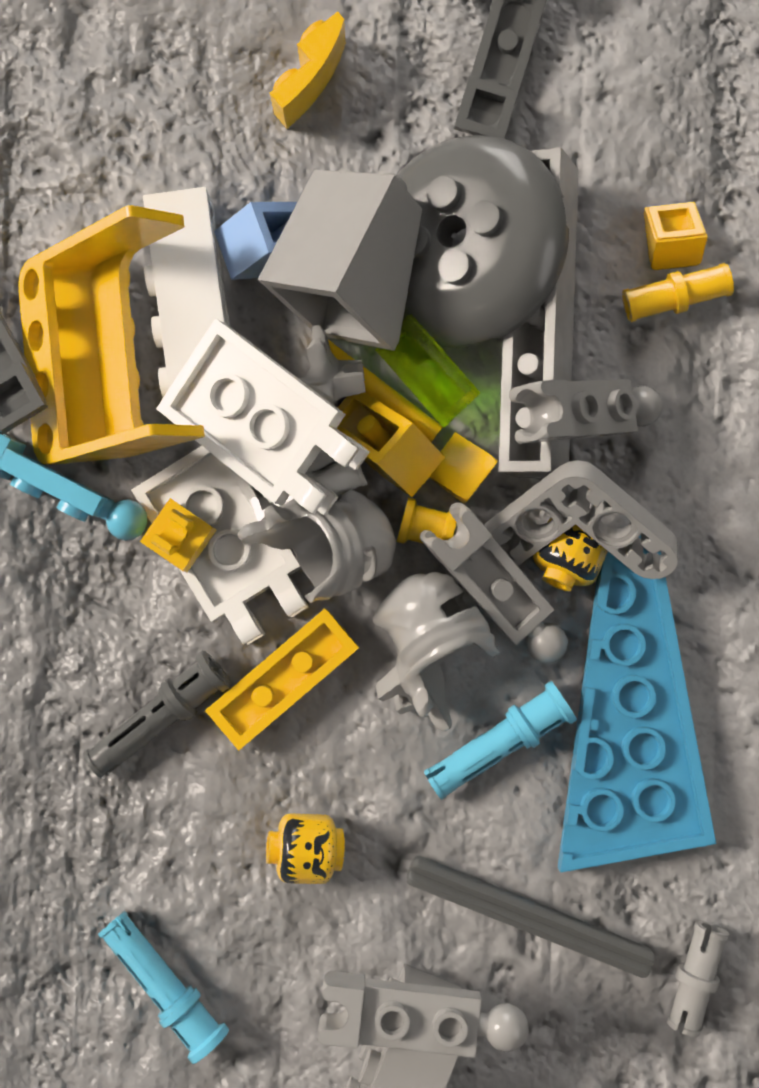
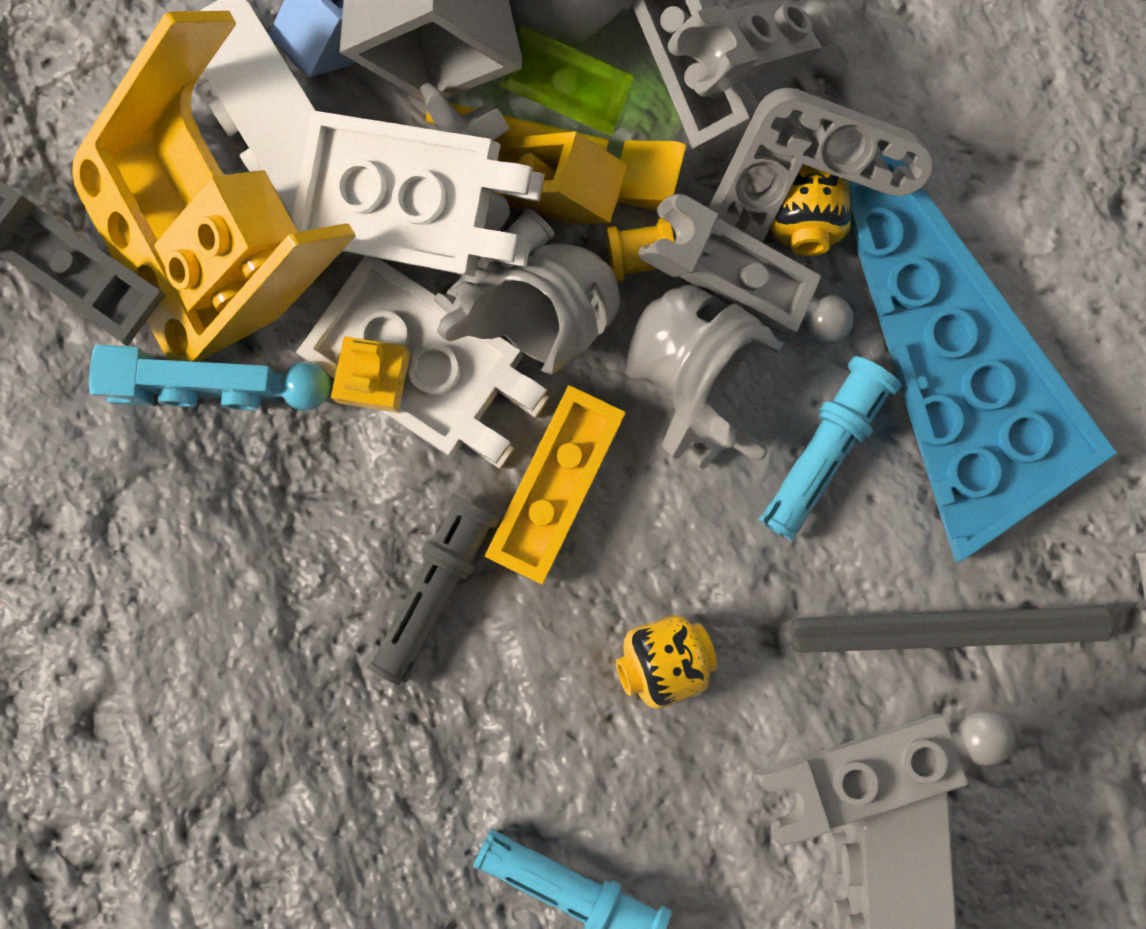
camera: 20 degrees left, 5 degrees down
(109, 390) = (223, 238): none -> yellow brick

